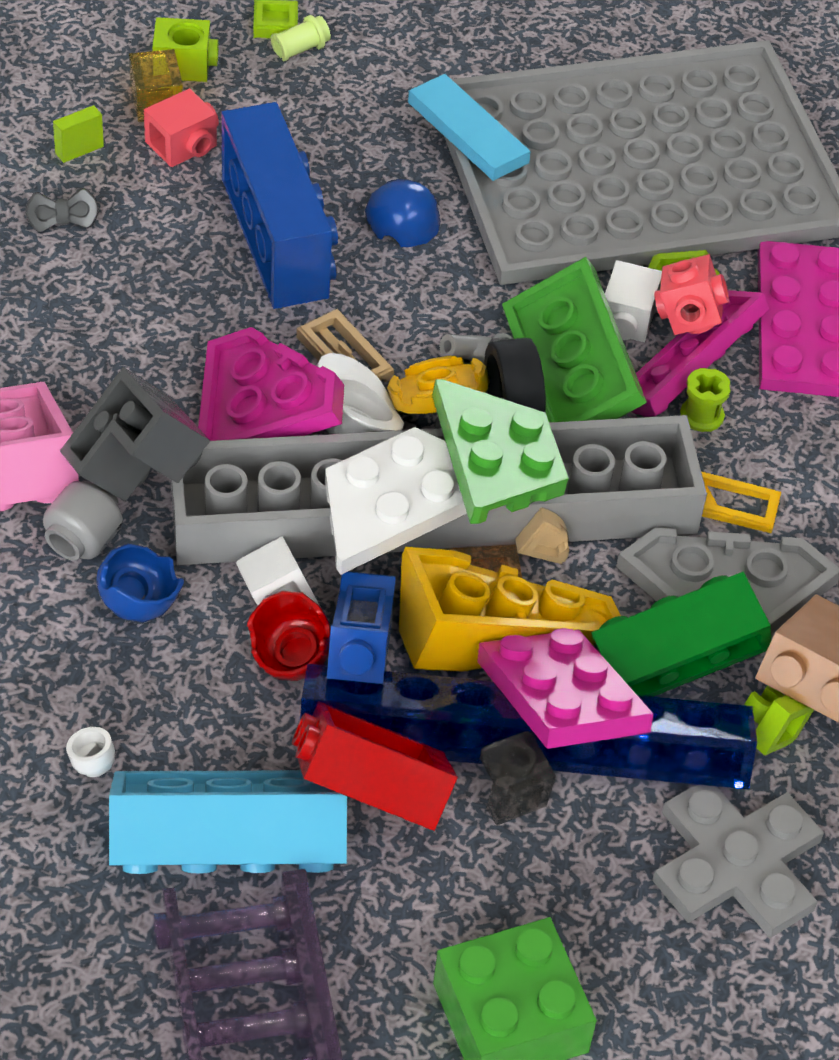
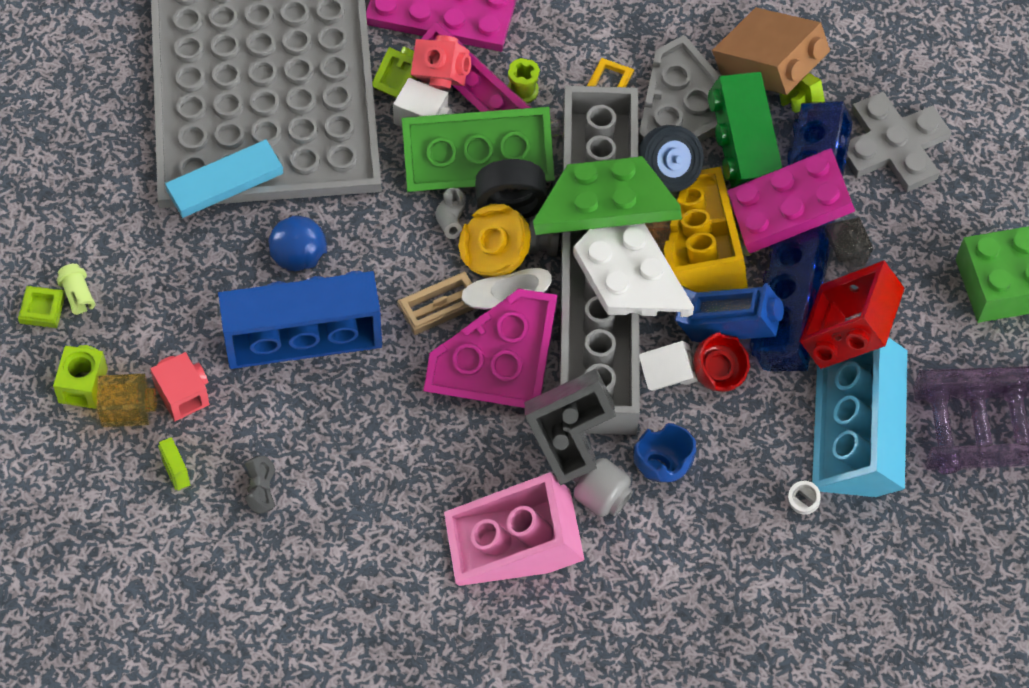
camera: 80 degrees left, 10 degrees up
(606, 549) = (673, 155): none -> black wheel

